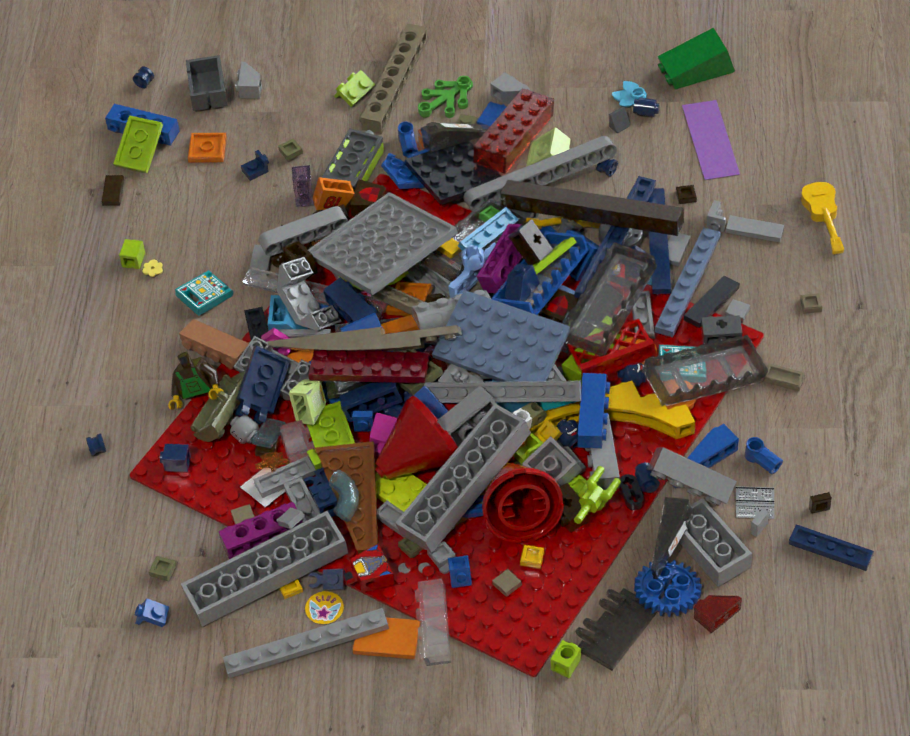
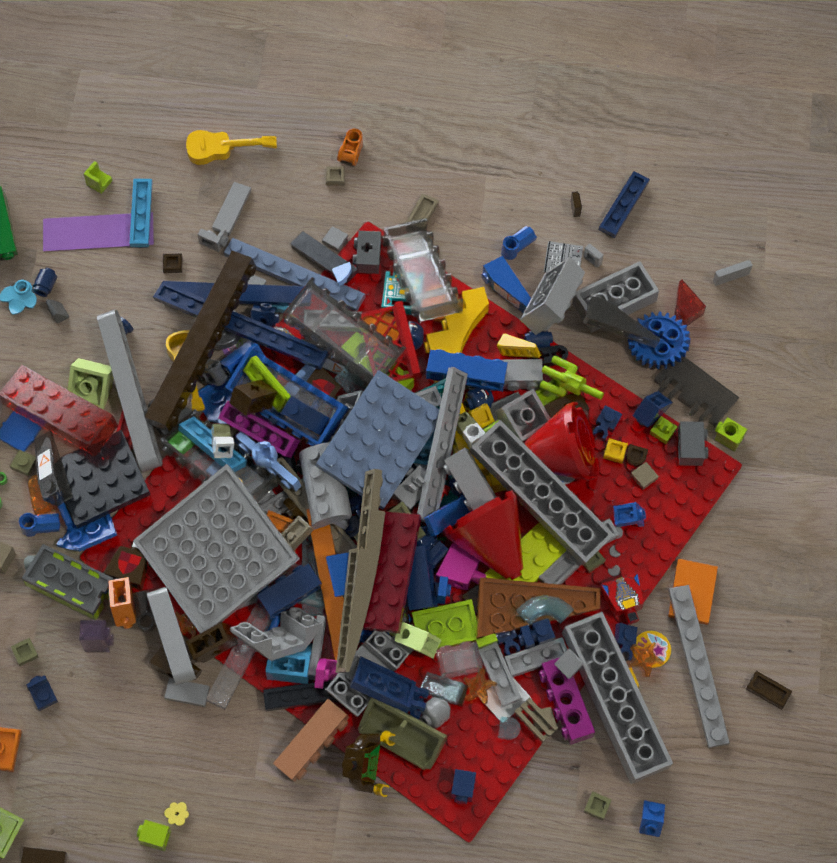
camera: 90 degrees left, 15 degrees up
(207, 289) = (222, 751): teal container -> none
(233, 490) = (508, 728): none -> clear light blue tile
(237, 504) = (529, 702): none -> dark tan tile
(285, 709) = (769, 690): none -> dark brown tile
(311, 598) = (645, 658): none -> clear orange animal
(434, 622) = (688, 543): clear brick -> none
(487, 231) = (222, 438): none -> leg
(529, 575) = (636, 455): none -> dark brown tile
(546, 618) = (692, 443): none -> dark grey brick
(561, 596) = (663, 430): none -> lime tile
(564, 547) = (607, 421): none -> dark blue plate
(582, 581) = (652, 408): none -> dark blue slope
(634, 457) = (517, 347): none -> yellow slope
(689, 308) = (342, 273): none -> light blue tile
(733, 161) = (141, 213): none -> dark azure plate
(764, 125) = (96, 178): none -> lime panel
(764, 652) = (732, 272): none -> light grey tile
(846, 309) = (350, 149): none -> orange piece

